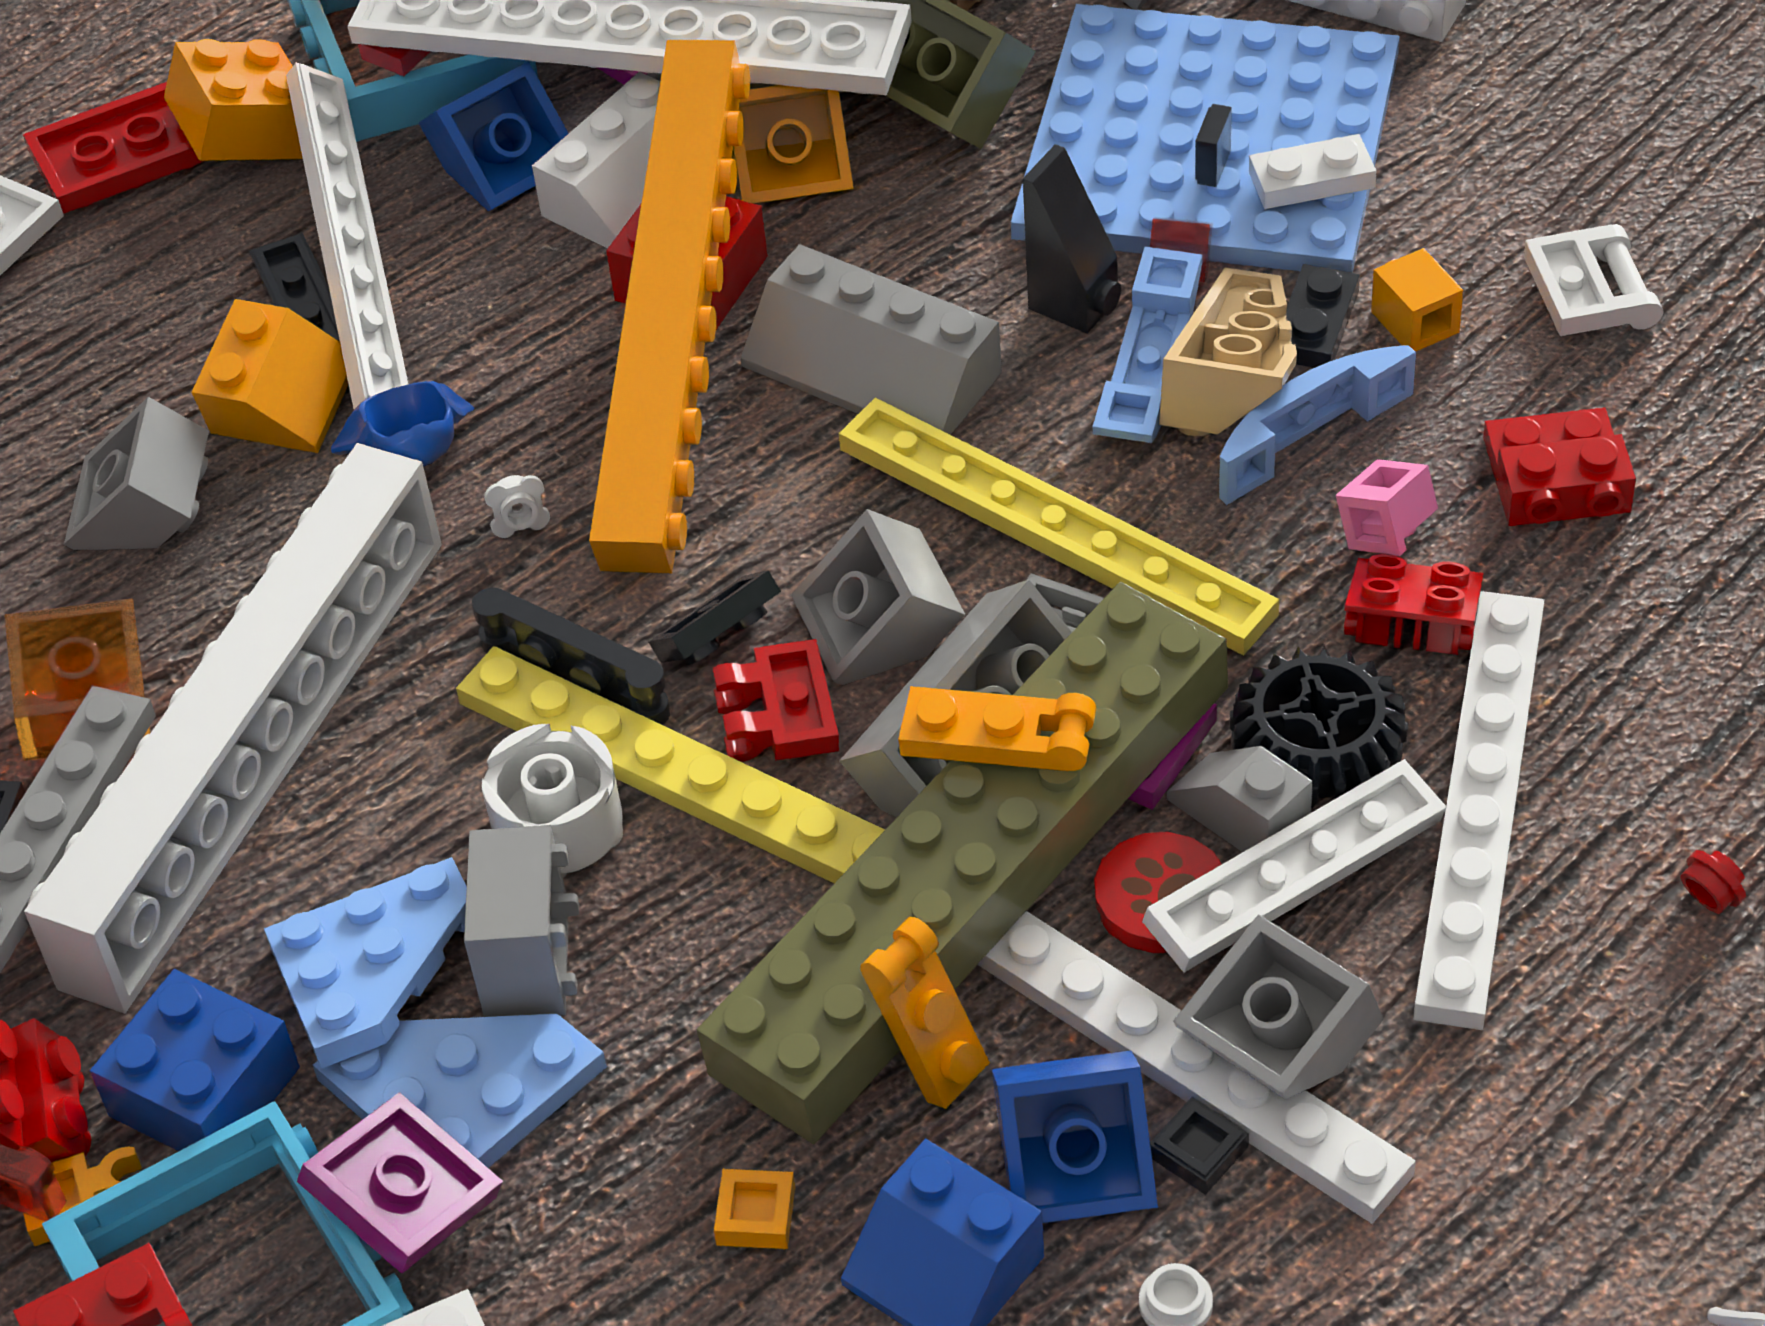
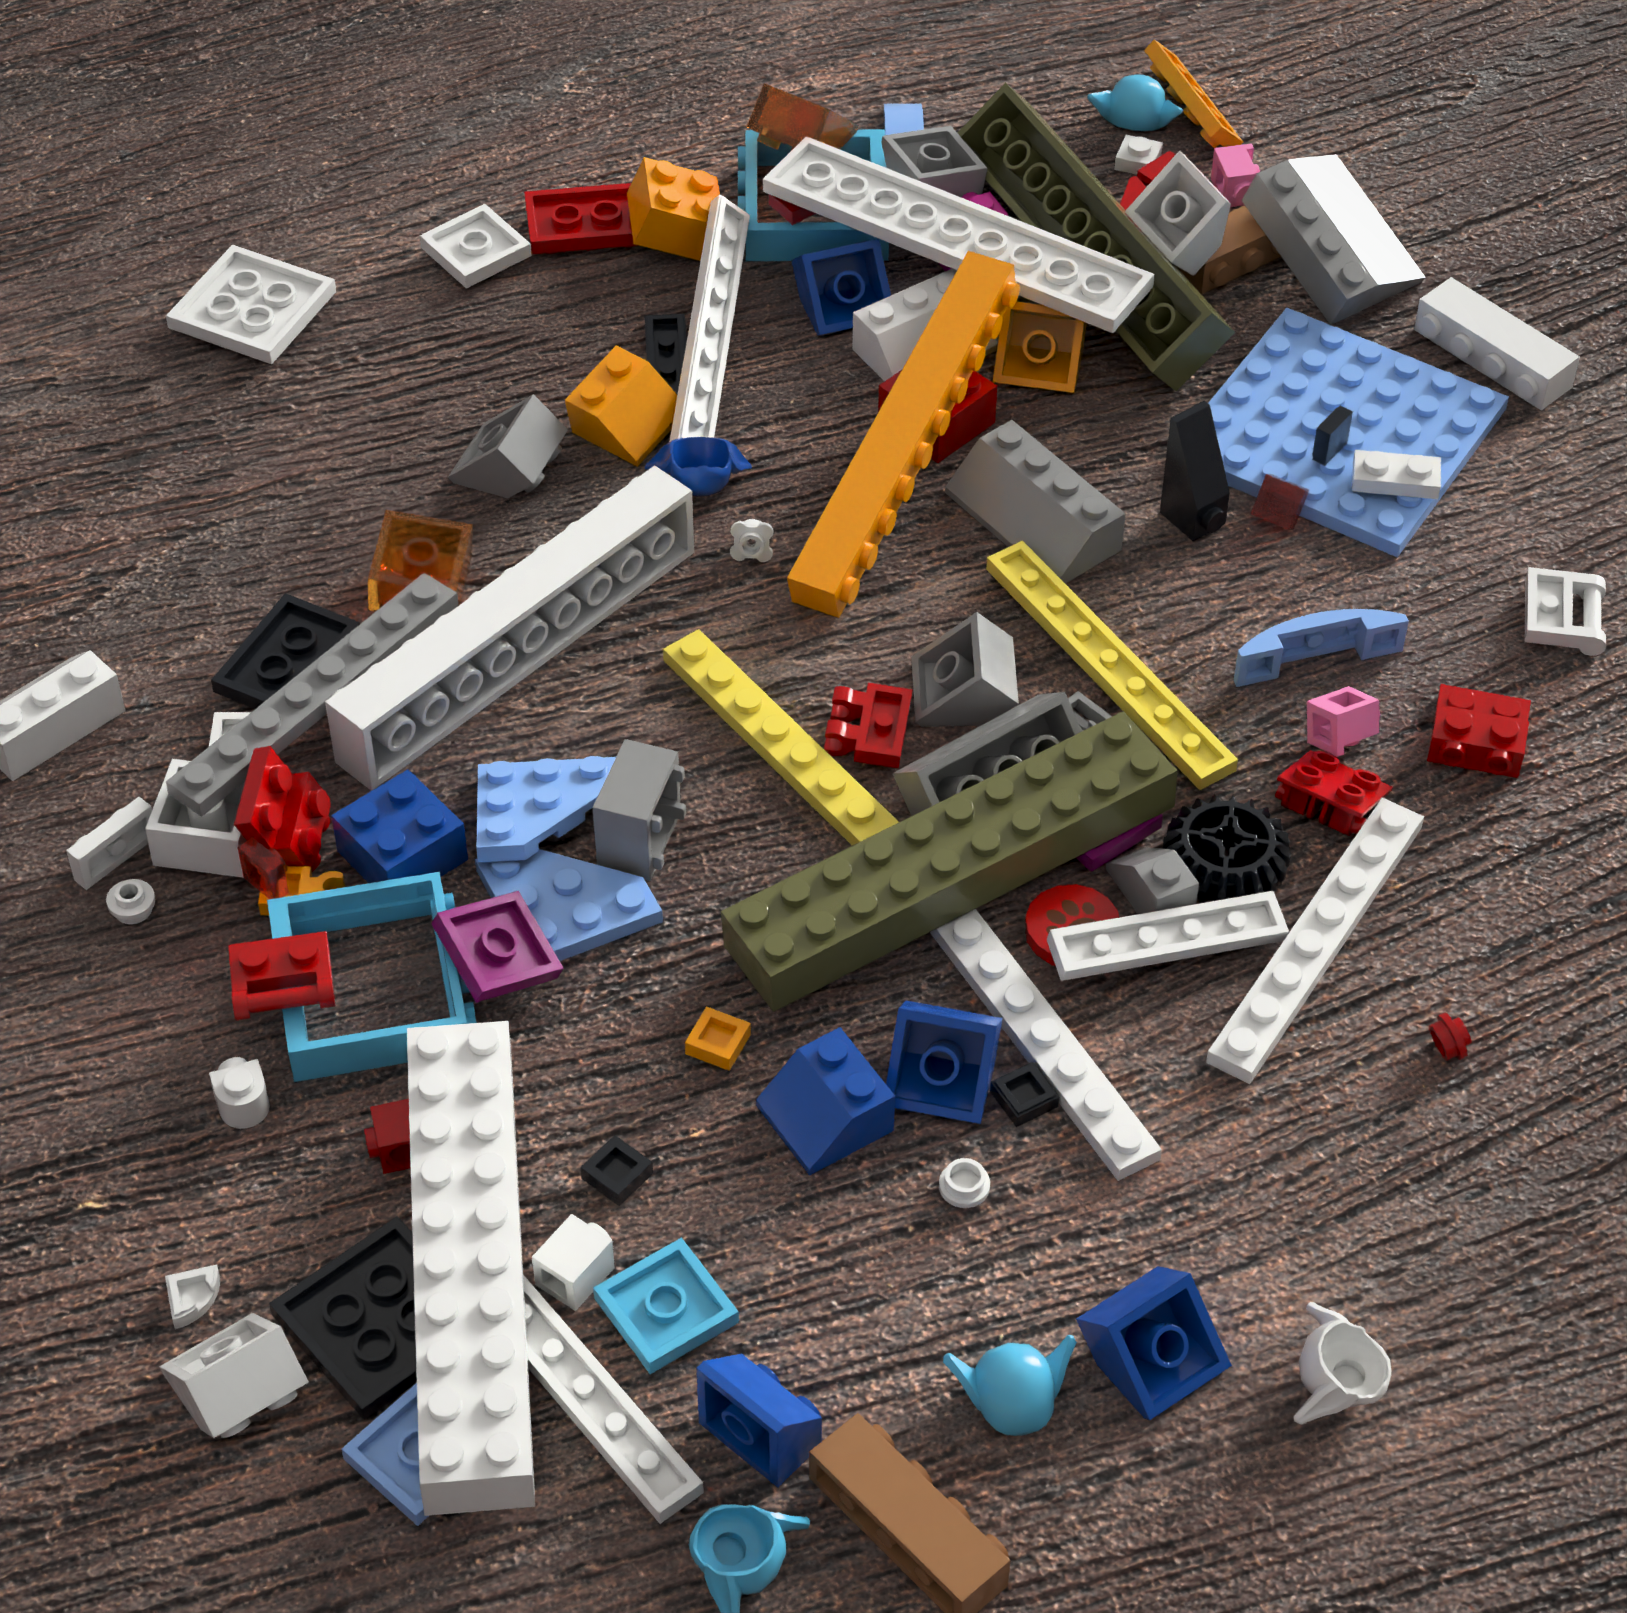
camera: 15 degrees right, 0 degrees up
(556, 782) = (703, 733): white brick -> none
(571, 652) = (747, 649): black plate -> none
(734, 606) = (834, 662): black plate -> none
(925, 1013) = (873, 949): light orange plate -> none
(997, 728) = (994, 780): light orange plate -> none
(1161, 308) = (1231, 564): light blue slope -> none
(1228, 354) = (1277, 582): tan wedge -> none
(1281, 1011) = (1112, 1025): light grey slope -> none
(1320, 312) = (1357, 576): black plate -> none
(1416, 300) = (1431, 586): light orange brick -> none

